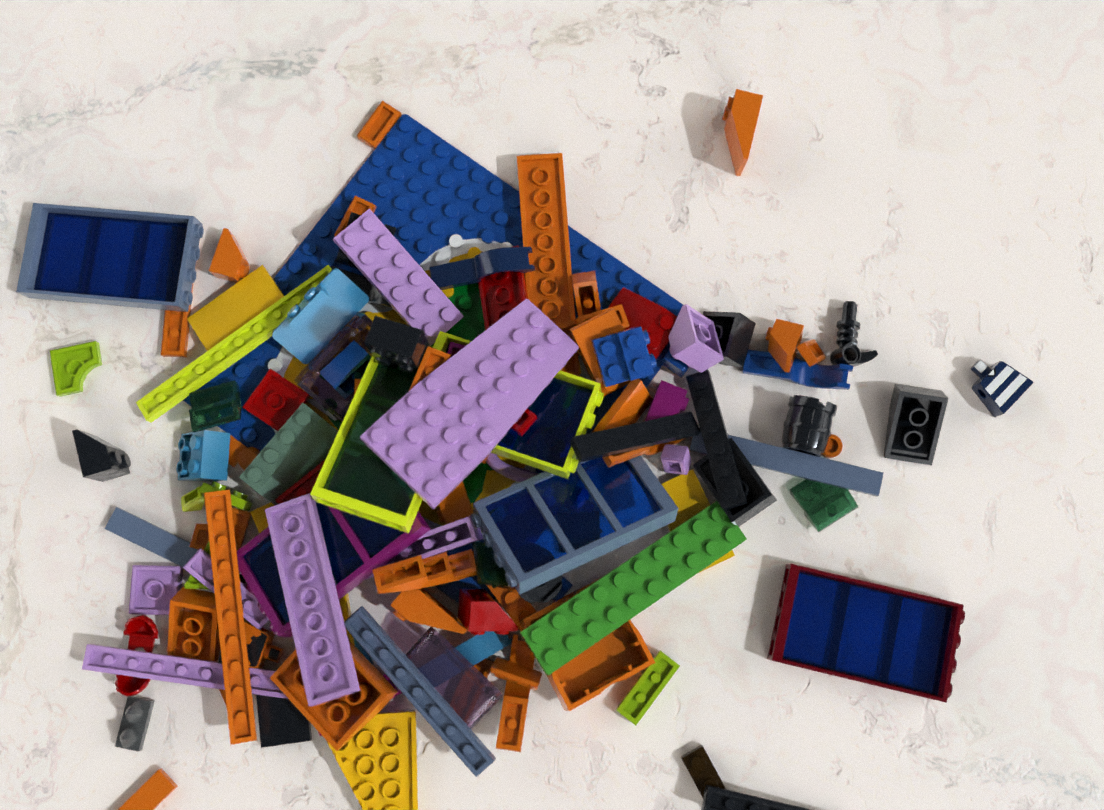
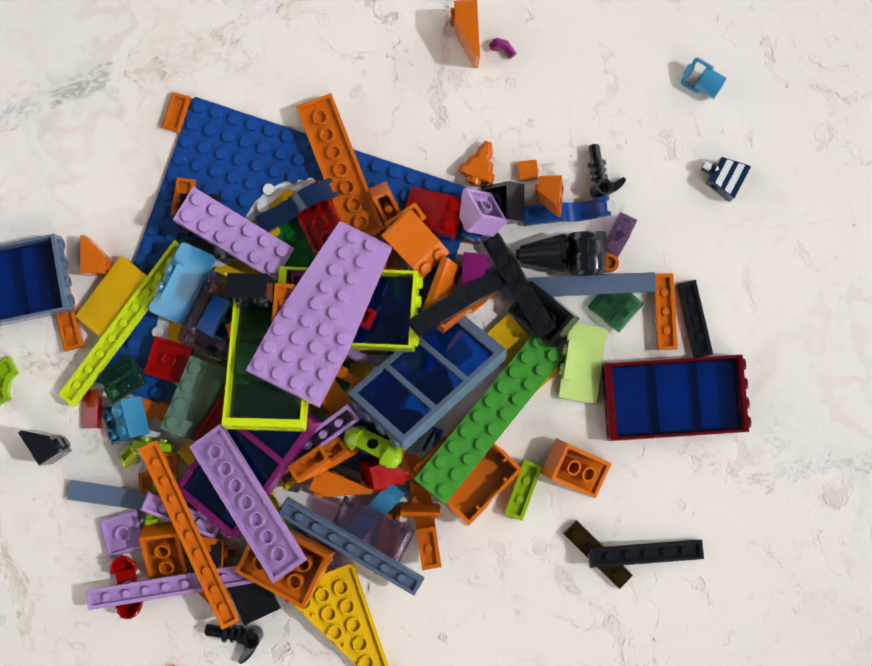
camera: 20 degrees left, 5 degrees up
(134, 723) = (141, 638): dark grey tile -> none
(169, 432) = (92, 409): none -> red slope
(251, 757) = (238, 634): none -> black piece
(368, 588) = (288, 481): none -> yellow slope
(474, 480) = (343, 374): none -> orange plate
(498, 591) = (387, 453): none -> lime piece
(624, 356) = (429, 243): blue plate -> none
(676, 459) = (493, 310): lavender slope -> none
(708, 287) = (479, 166): none -> orange rock
(719, 680) = (575, 468): none -> orange slope
(757, 411) = (545, 253): none -> black cone
(764, 309) = (527, 170): none -> orange tile
(764, 556) = (582, 363): none -> yellowish green bracket
(777, 158) = (498, 43): none -> magenta arm
(811, 352) = (574, 194): orange tile -> none
(853, 414) = (619, 233): none -> clear purple slope
(881, 526) = (665, 312): none -> orange plate
(914, 423) = (668, 226): black slope -> none
(914, 544) = (694, 318): none -> black tile
(1008, 270) = (709, 81): none -> dark azure piece

